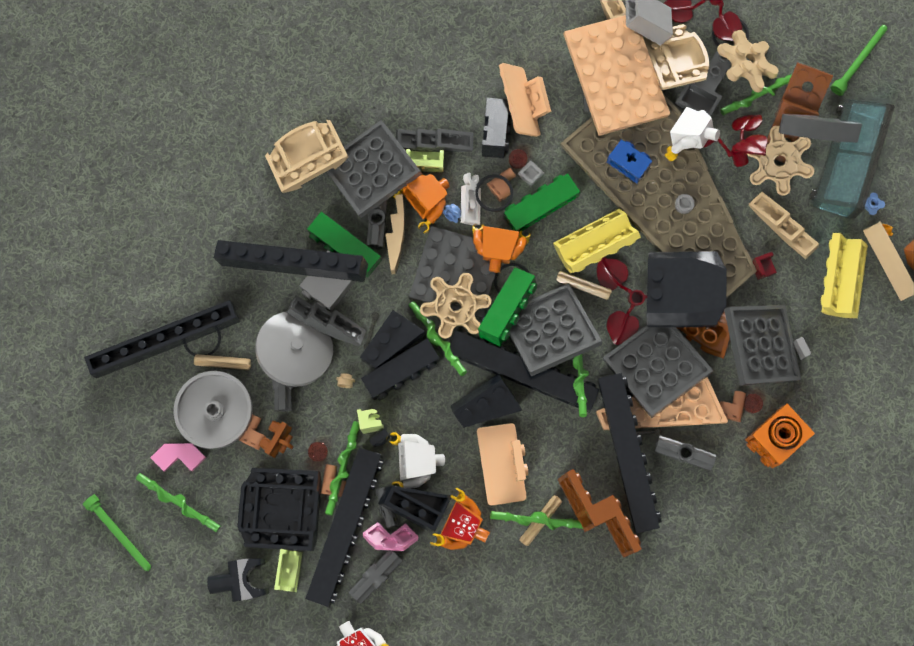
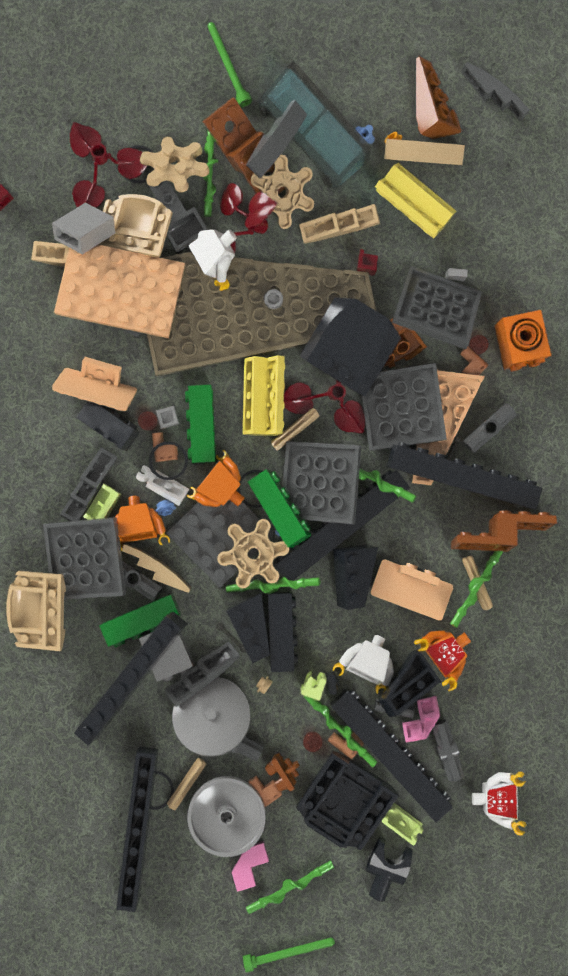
camera: 65 degrees left, 10 degrees up
(633, 170) = (199, 330): blue brick -> none

